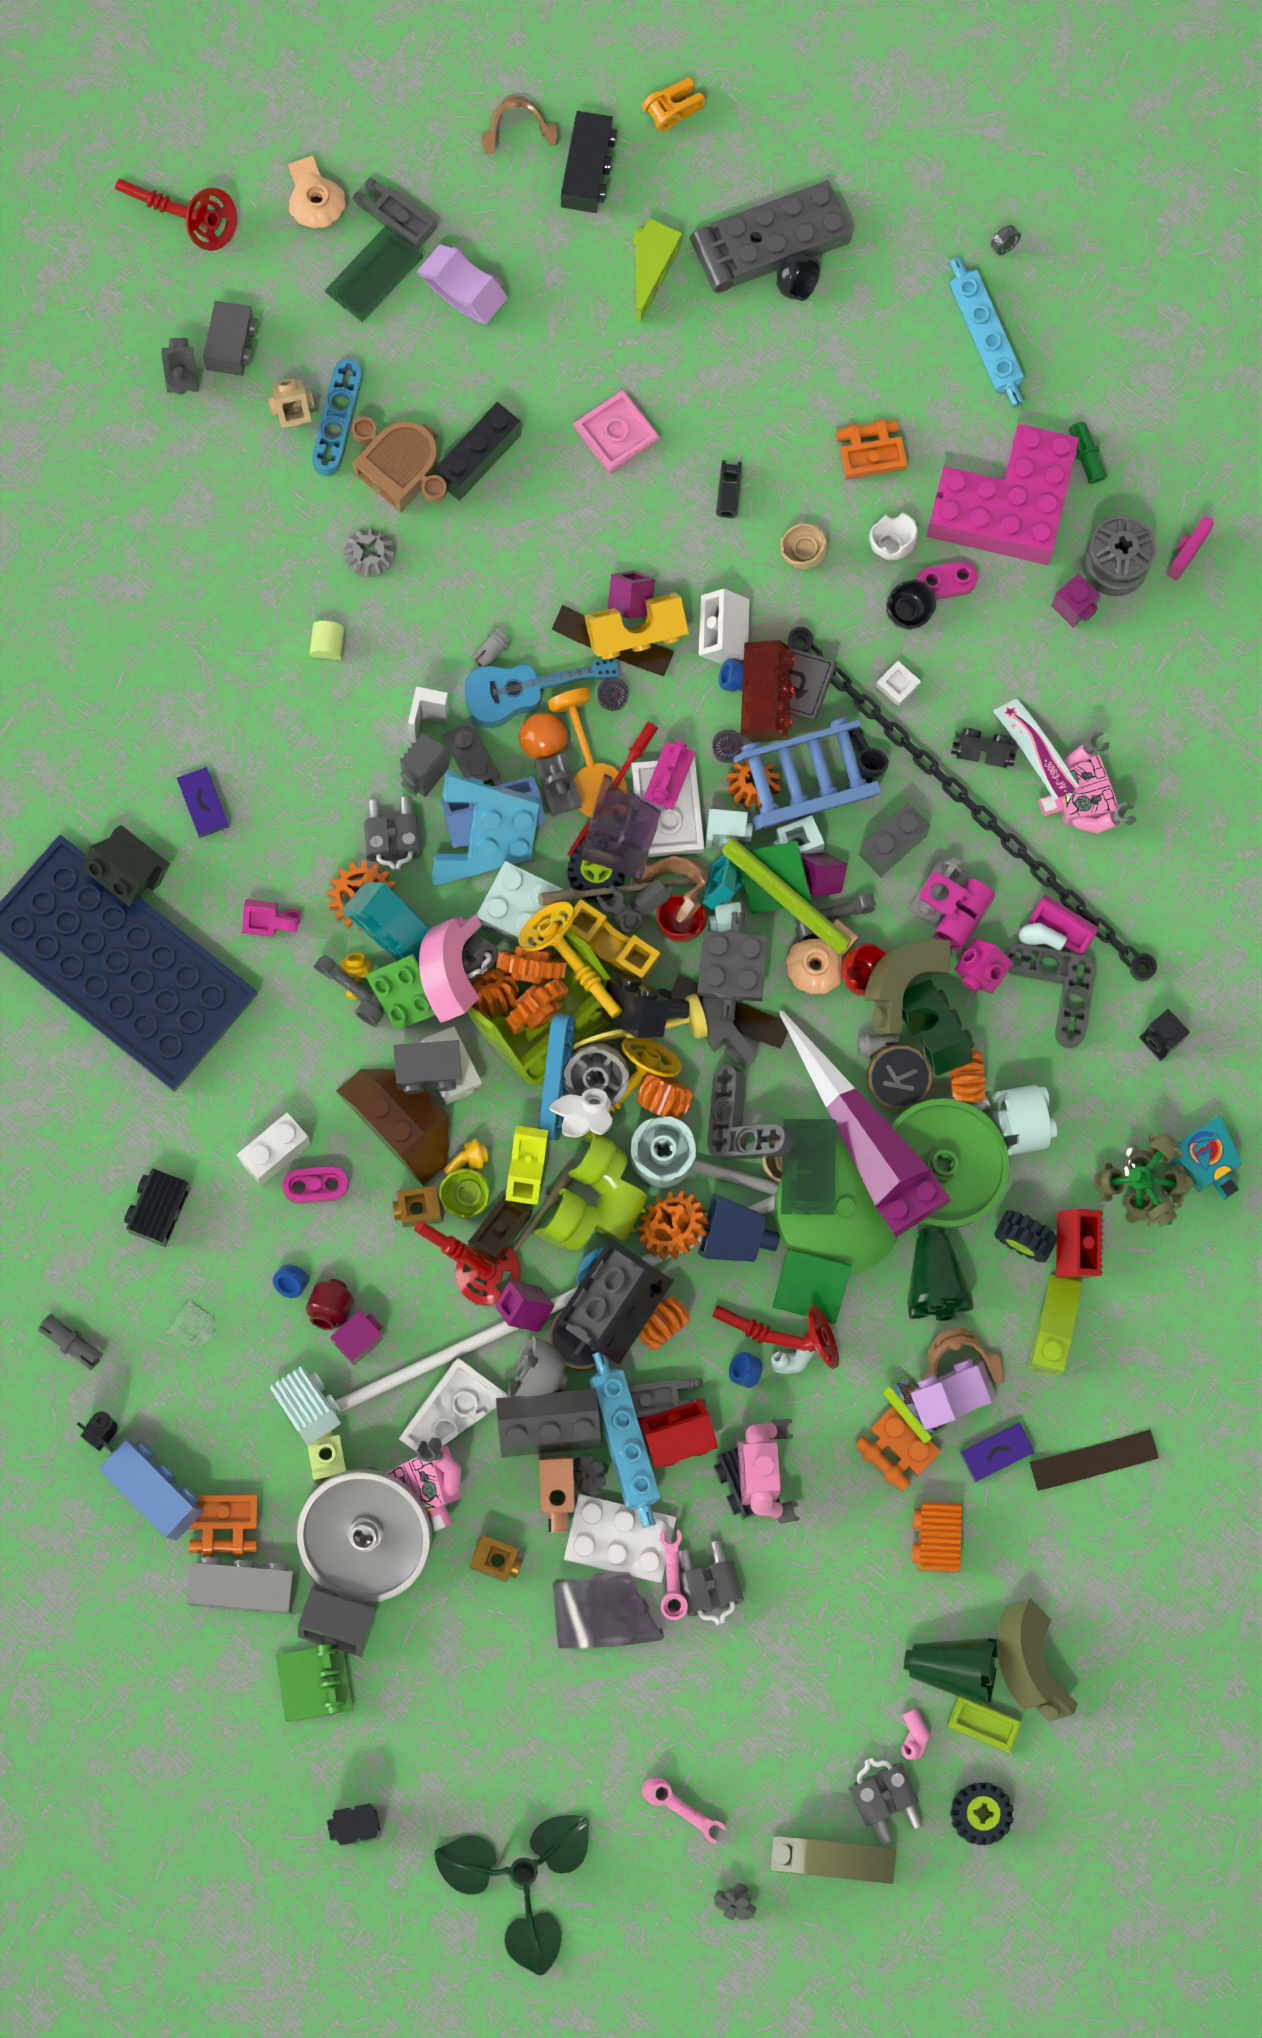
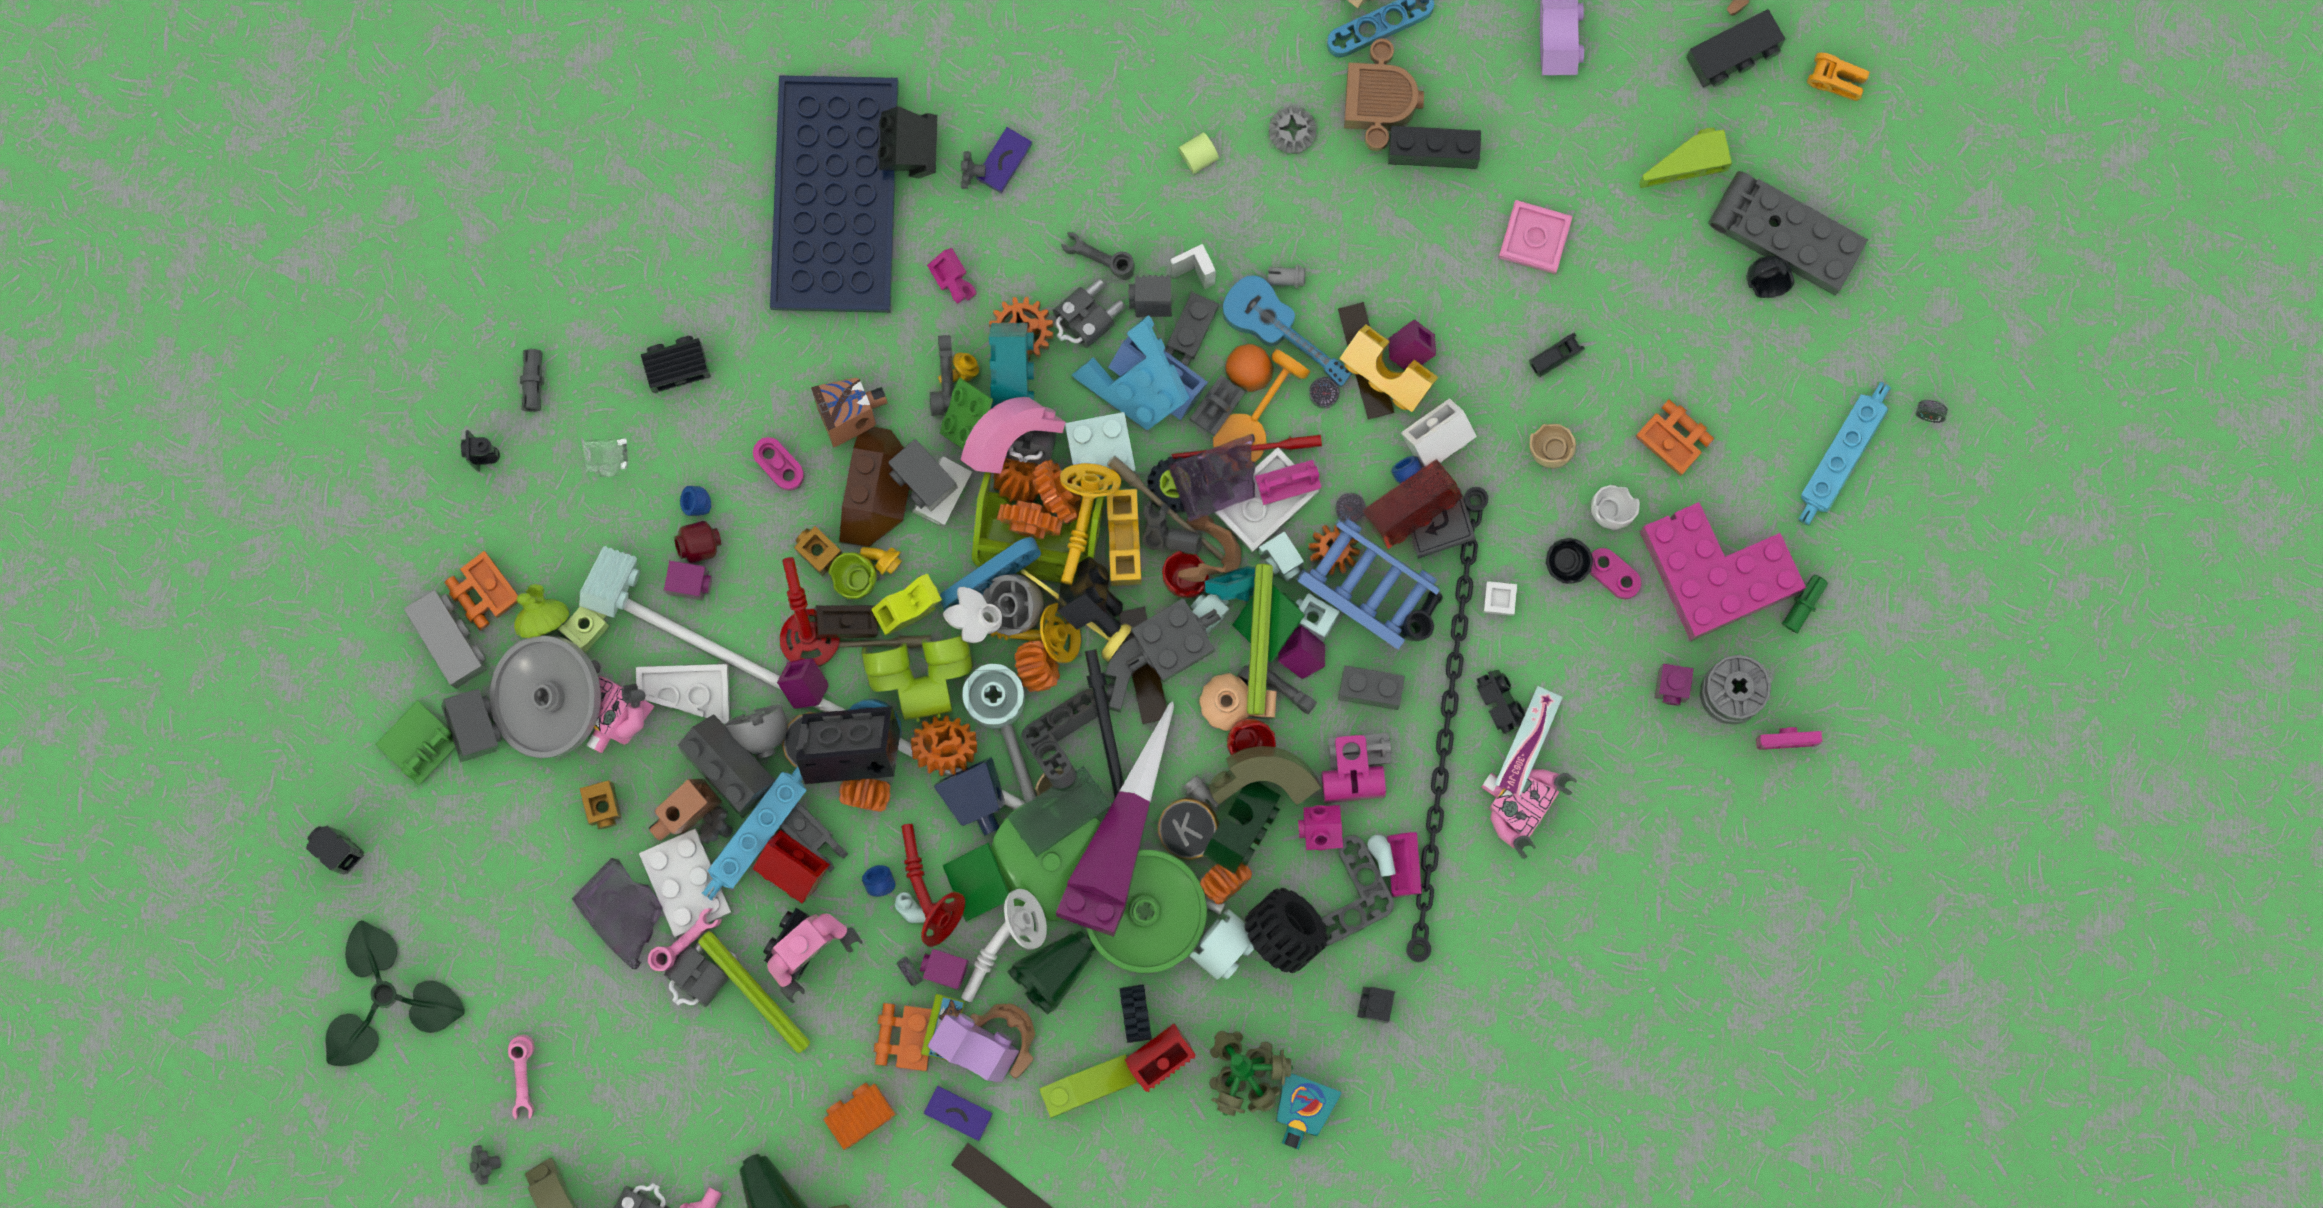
camera: 60 degrees right, 5 degrees up
(152, 1489) = (466, 520): medium blue brick -> none
(190, 834) = (970, 169): none -> dark grey plant
(273, 1149) = (780, 413): white brick -> none
(287, 1487) = (538, 614): none -> lime hair
(314, 1089) = (847, 408): none -> torso
(369, 767) = (1113, 262): none -> dark grey brick
(718, 1055) = (1096, 681): none -> black bar
(762, 1548) = (754, 992): none -> lime axle
(844, 1401) = (909, 971): none -> tile
(866, 1369) = (944, 969): none -> magenta brick
(875, 1272) = (1018, 923): none -> white dish
(1051, 1057) = (1286, 930): none -> black tyre

